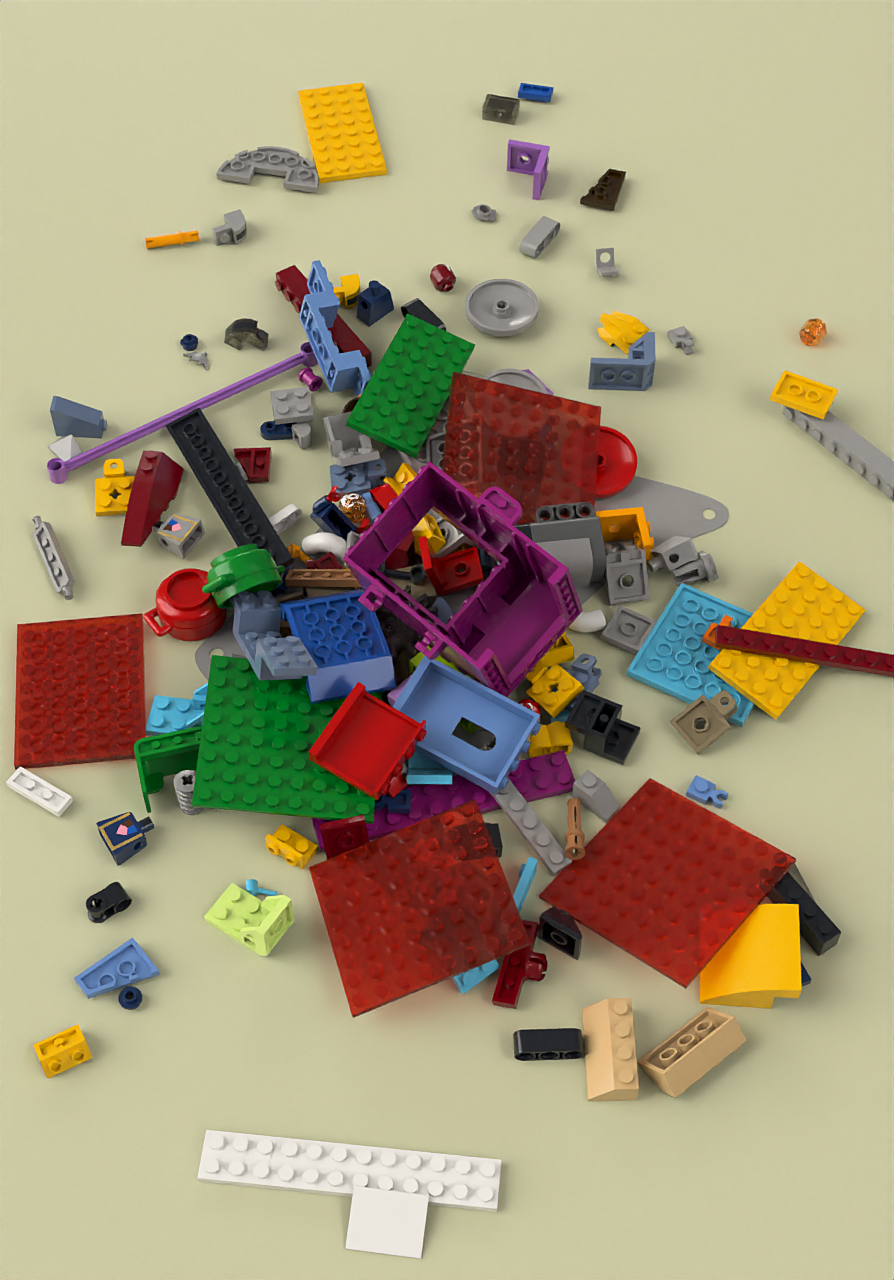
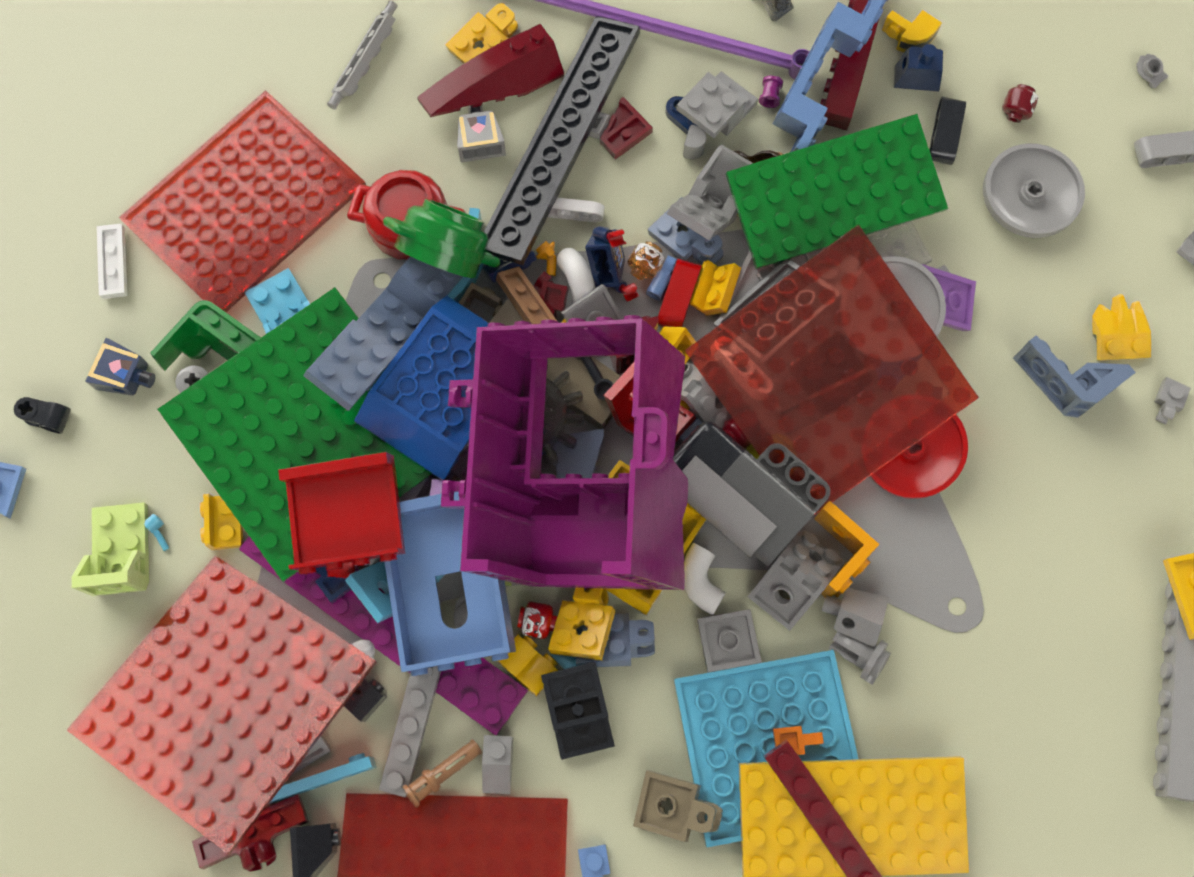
camera: 50 degrees right, 20 degrees up
(344, 835) = (254, 566): dark red plate -> none

